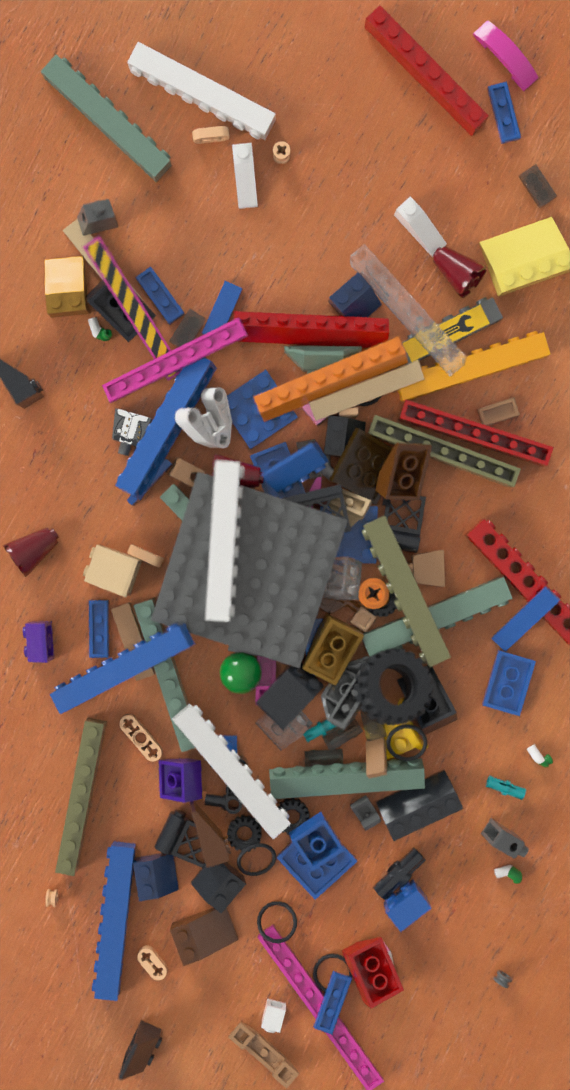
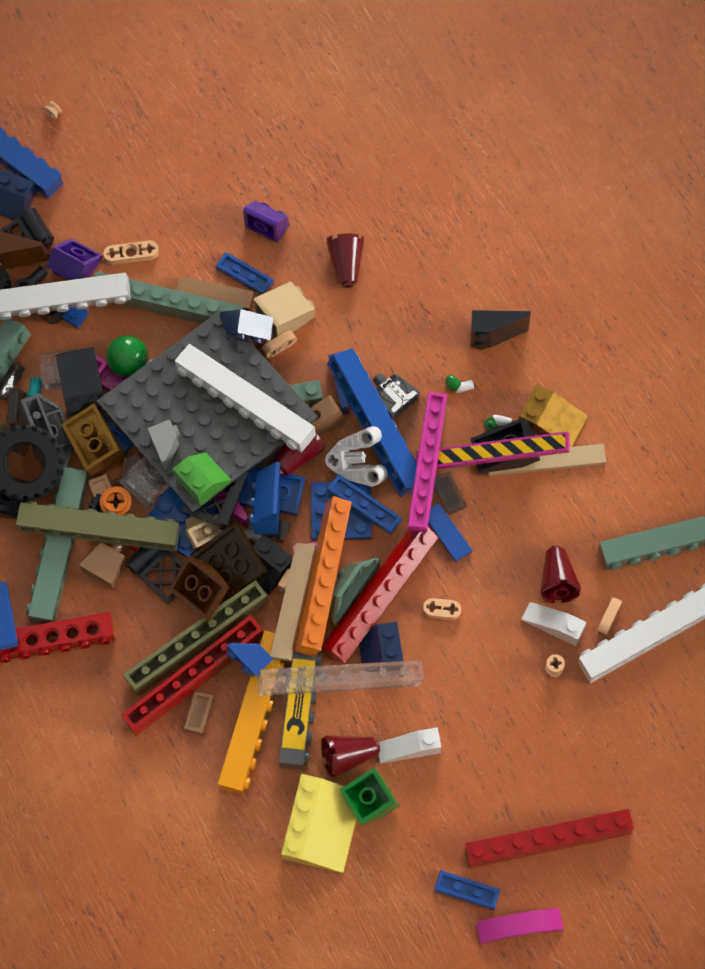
camera: 120 degrees right, 20 degrees down
(80, 796) = (117, 178): olive brick -> none
(87, 383) = (458, 386): none -> arm
(96, 217) = (593, 476): dark grey torso -> none
(119, 670) = (196, 266): blue brick -> none
(154, 585) = (247, 325): none -> slope
(160, 295) = (494, 490): blue tile -> none
(203, 194) = (559, 577): none -> dark red cone
(243, 390) = (365, 504): none -> blue tile
(286, 276) = (442, 604): none -> light nougat beam
(304, 581) = (165, 441): none -> light grey slope
(316, 529) = (200, 477): none -> bright green slope
(436, 392) = (250, 656): none -> blue slope
(483, 229) = (370, 797): none -> green slope
(537, 186) = (379, 875): clear smoke plate -> none

